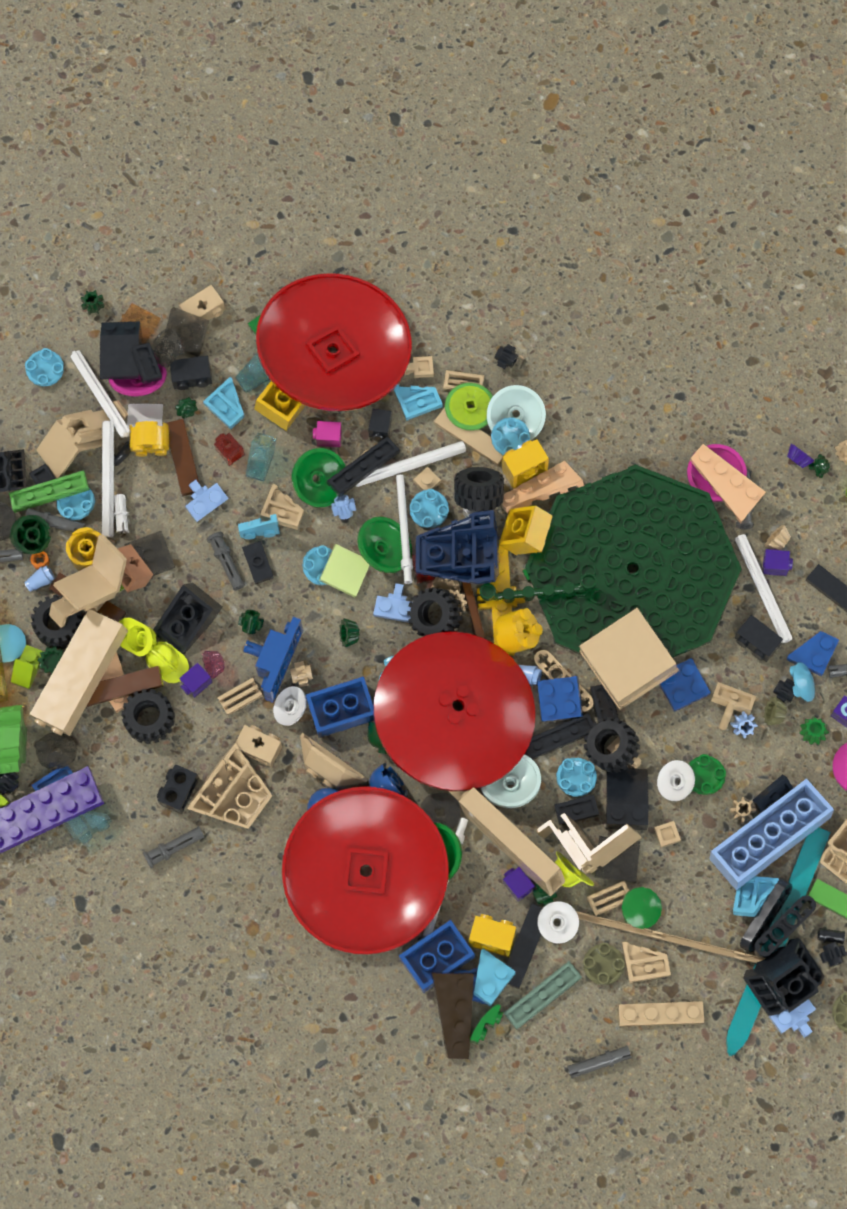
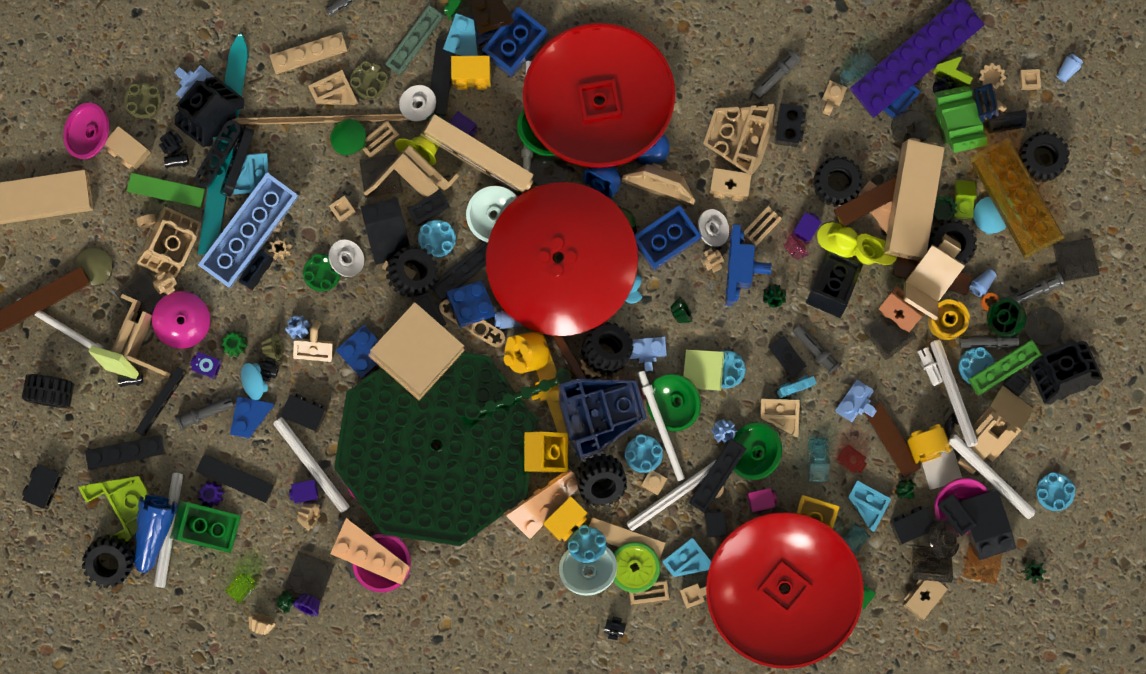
camera: 160 degrees right, 10 degrees up
(120, 809) = (833, 95): none -> tan plate
(790, 485) = (309, 575): none -> clear smoke plate

